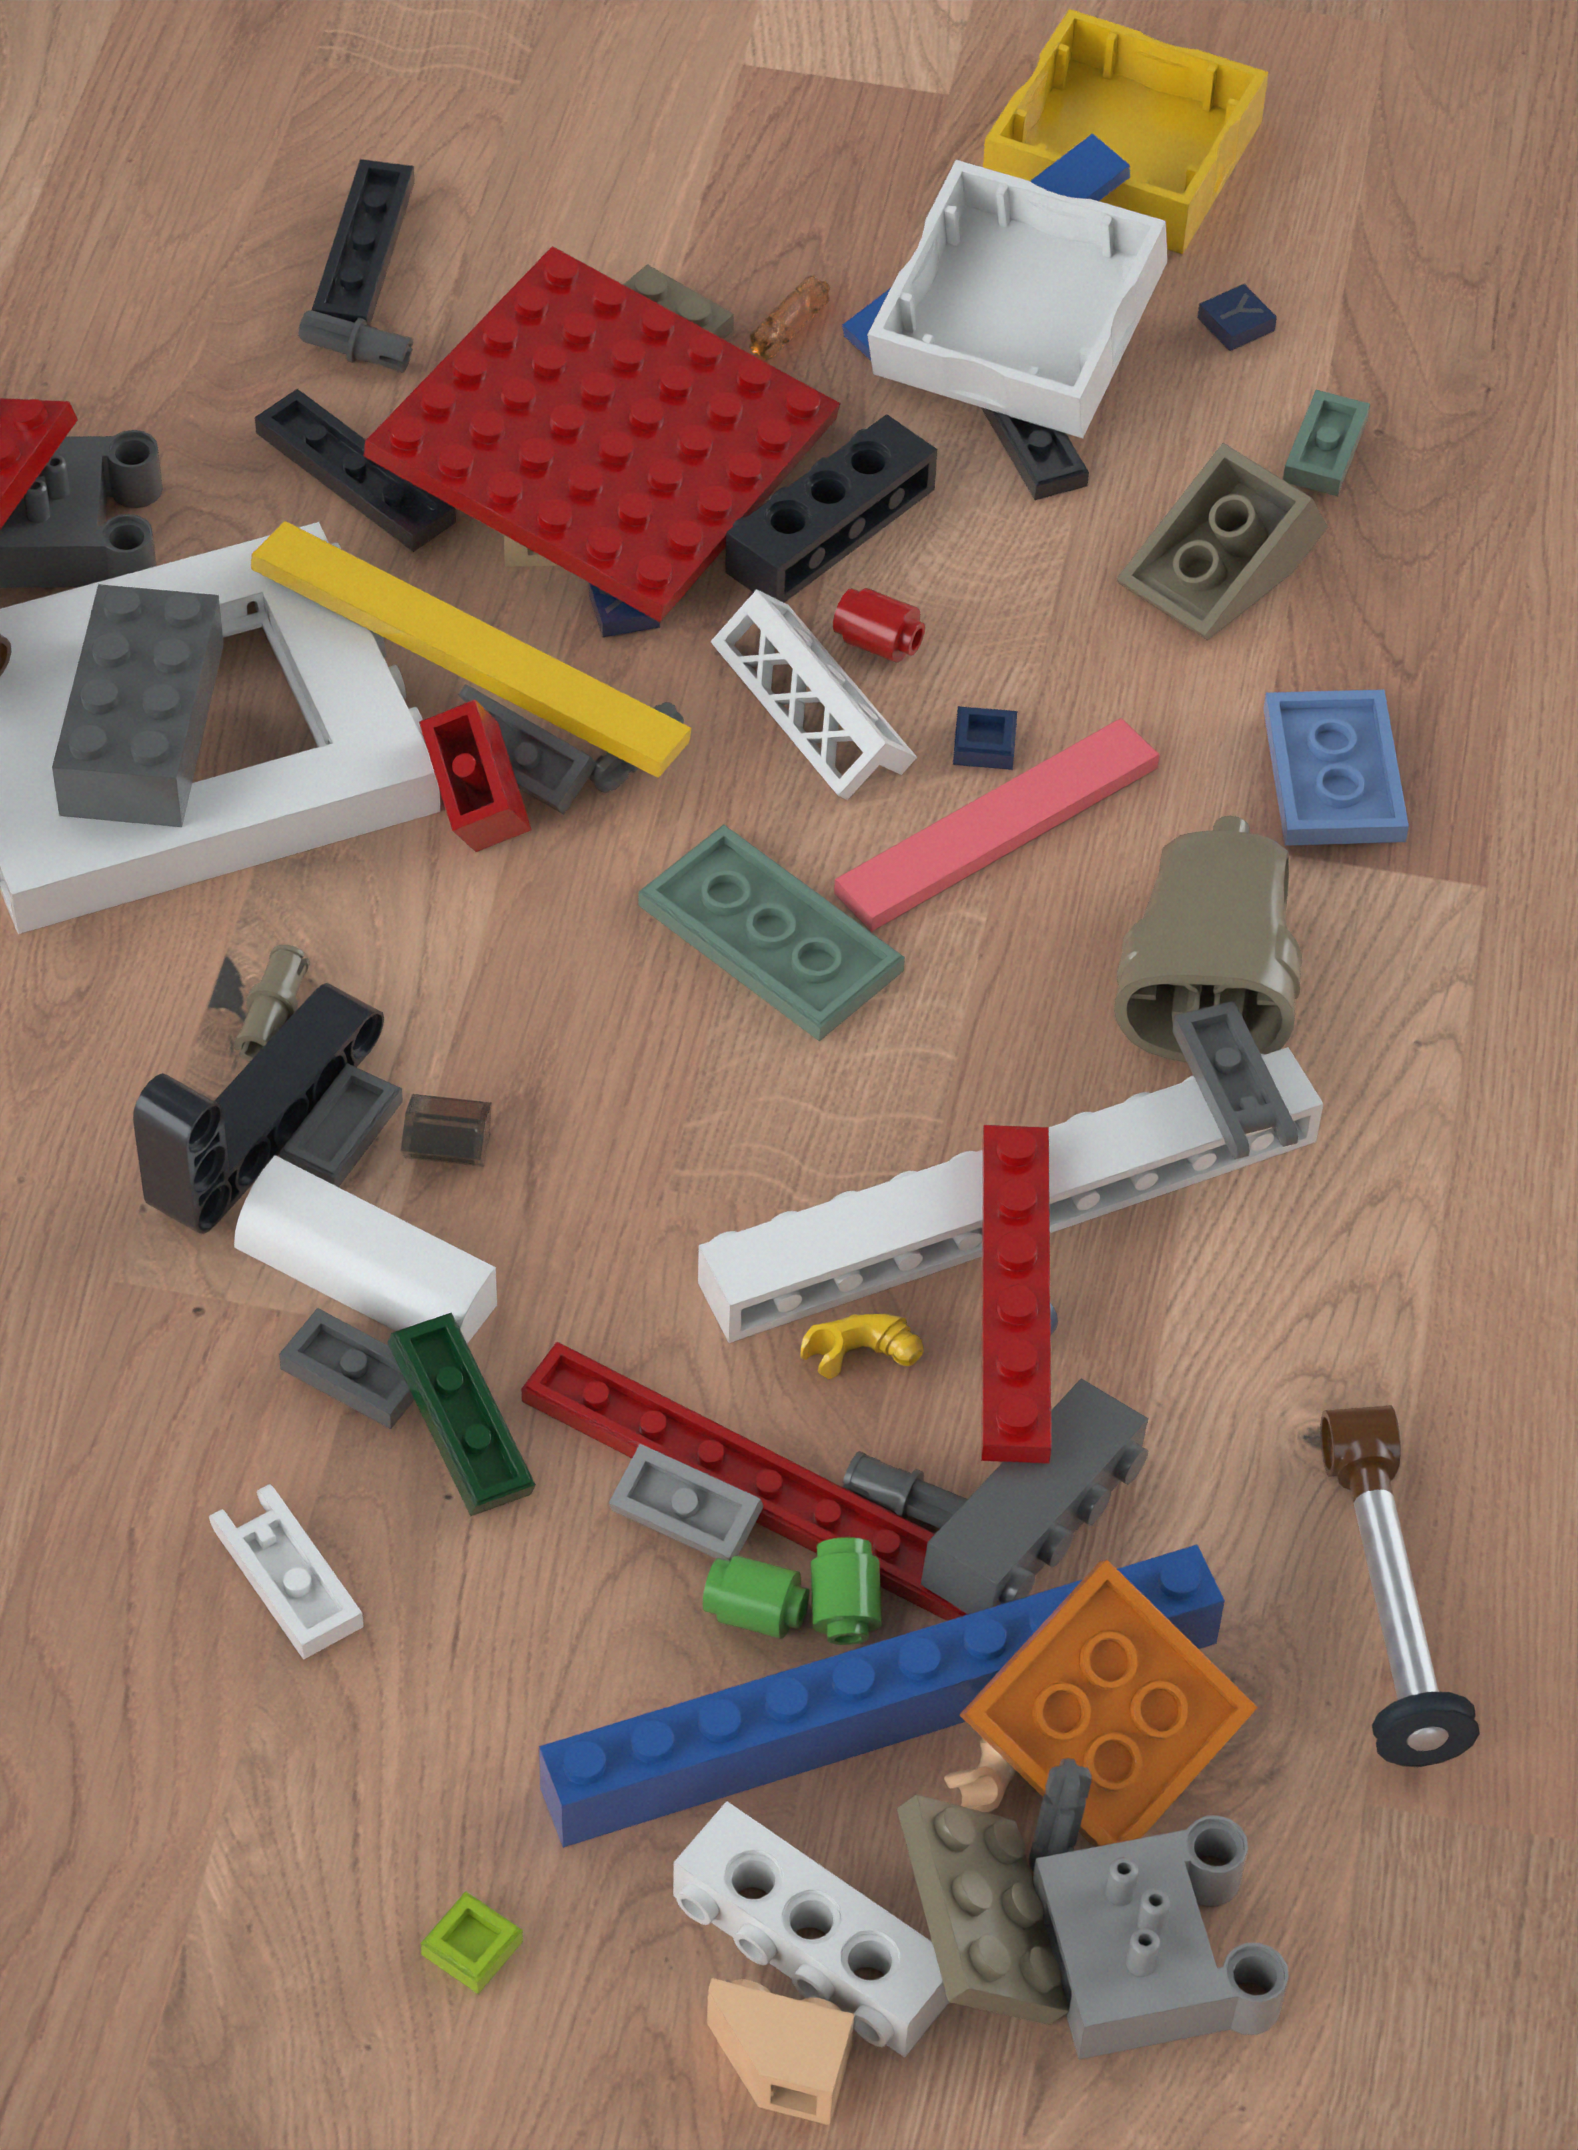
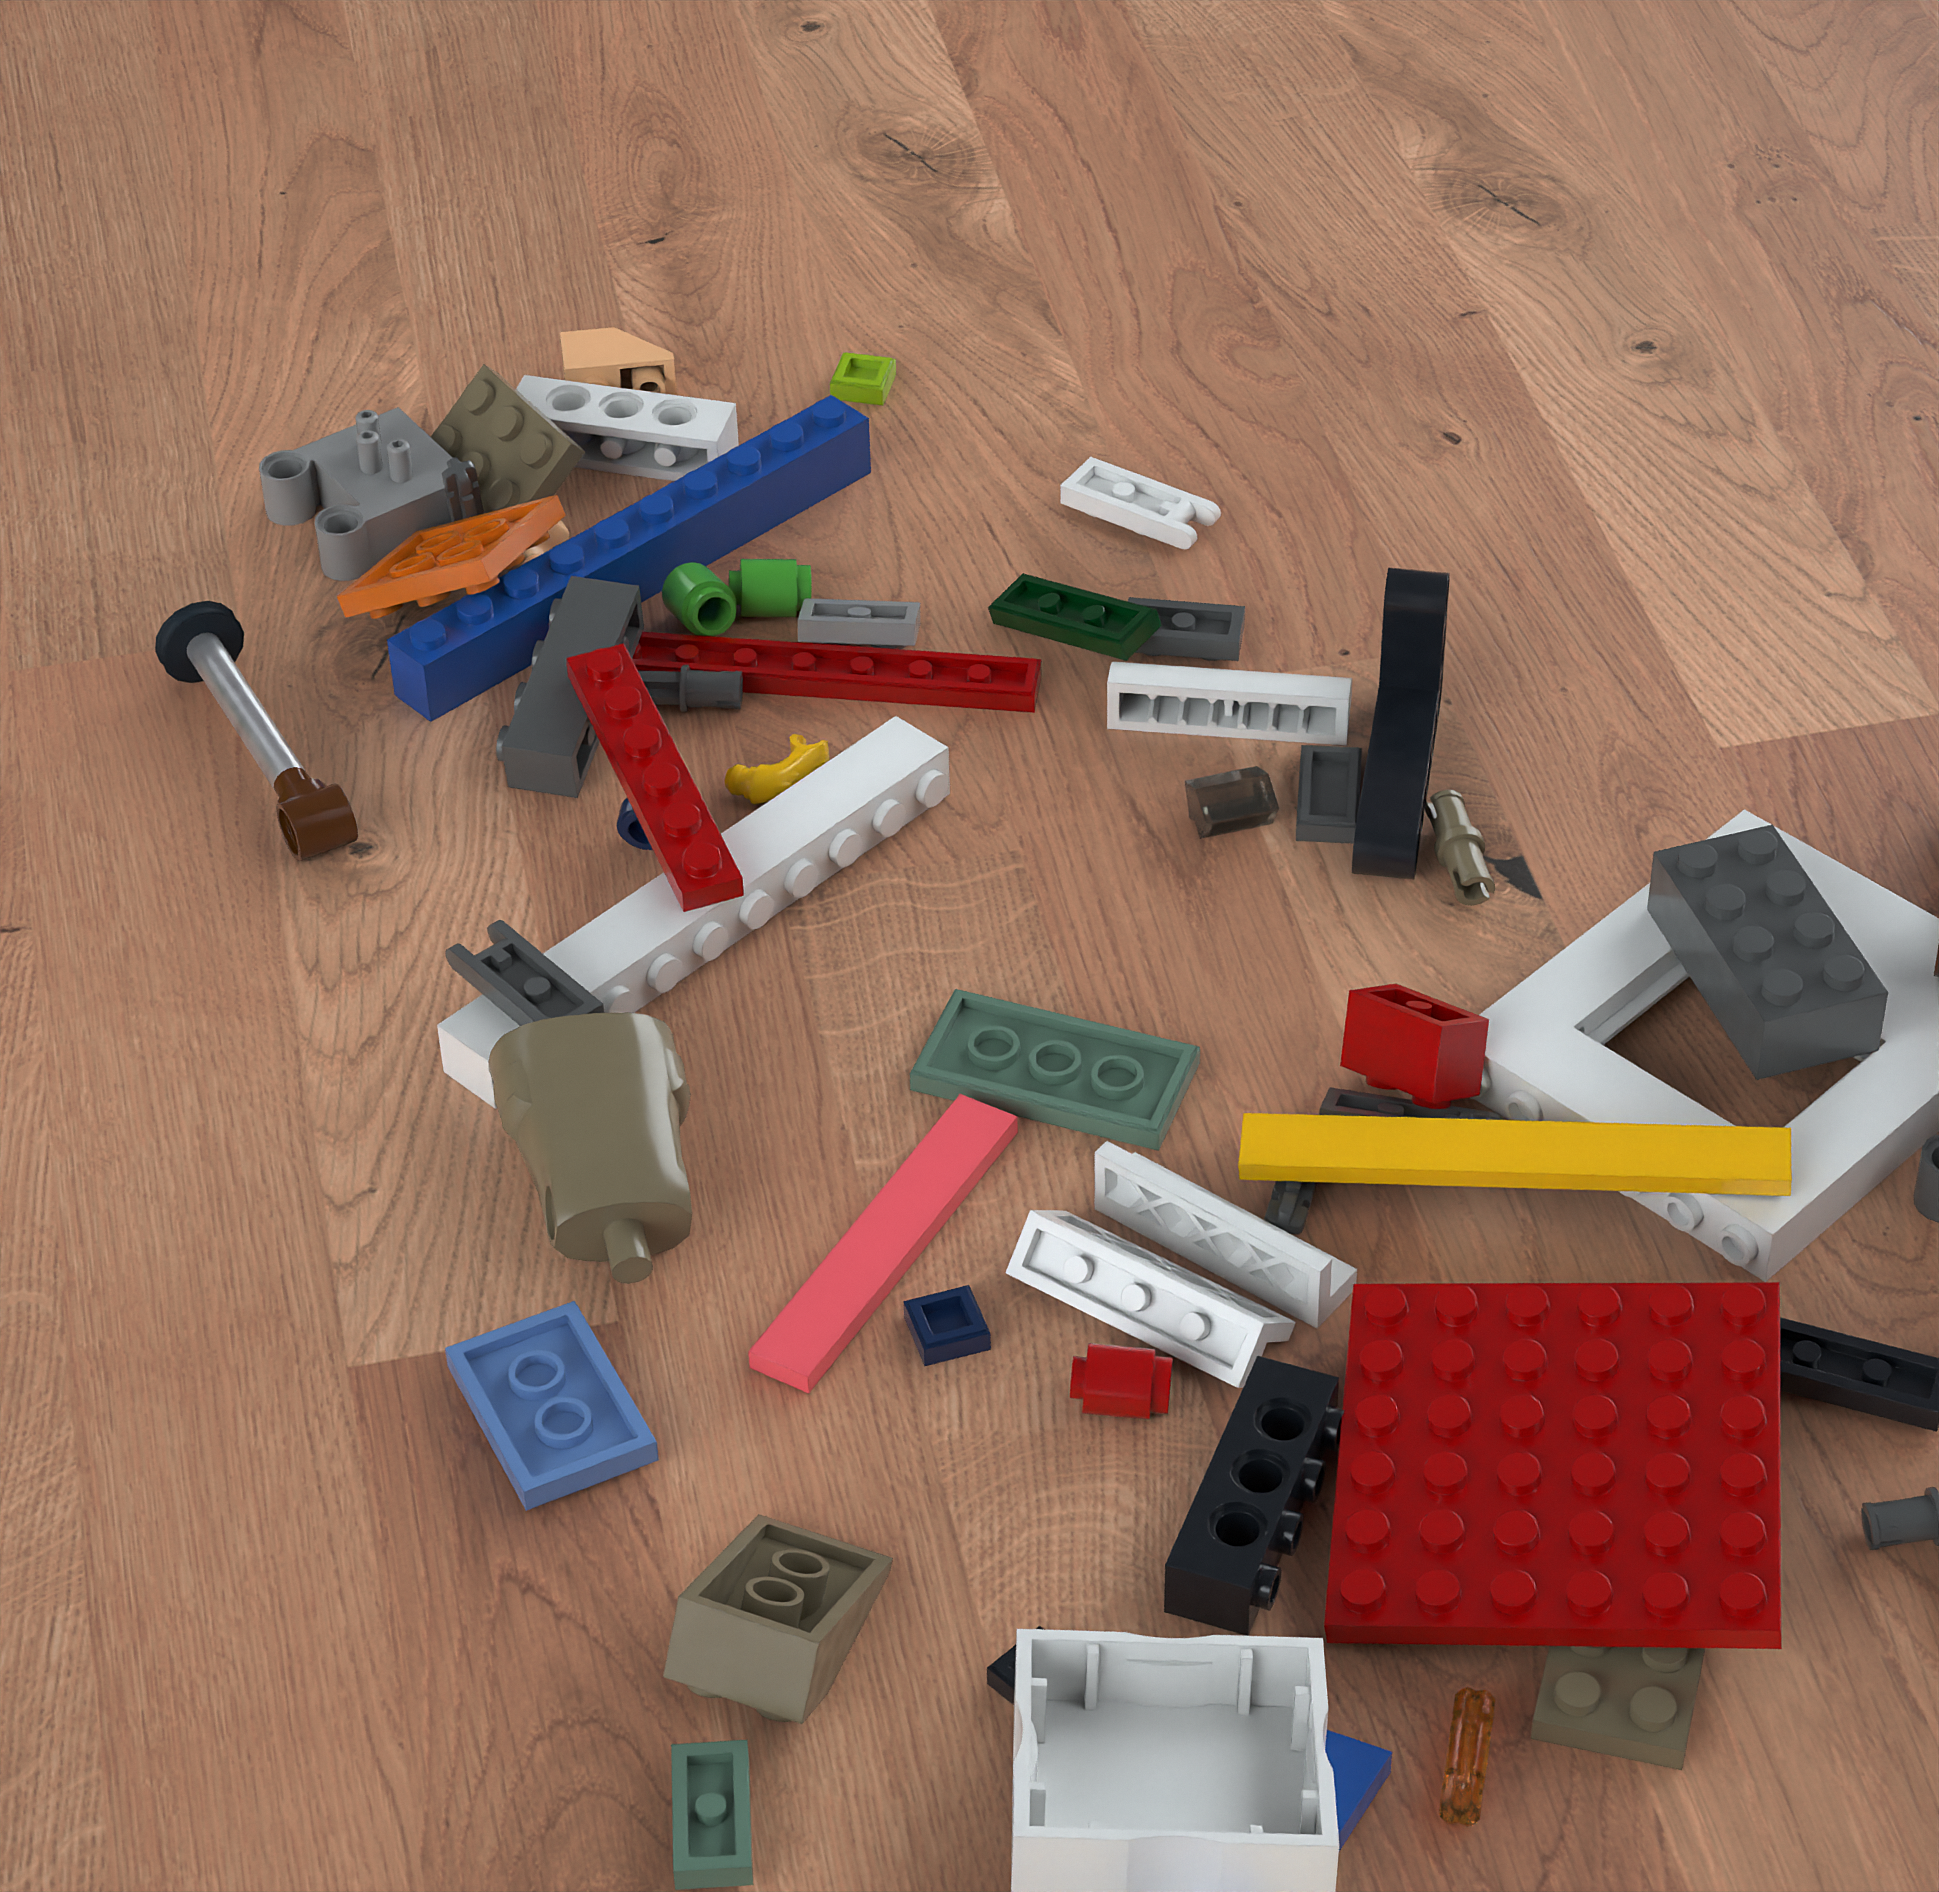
camera: 160 degrees right, 10 degrees down
(728, 719) = (1220, 1236): none -> white fence

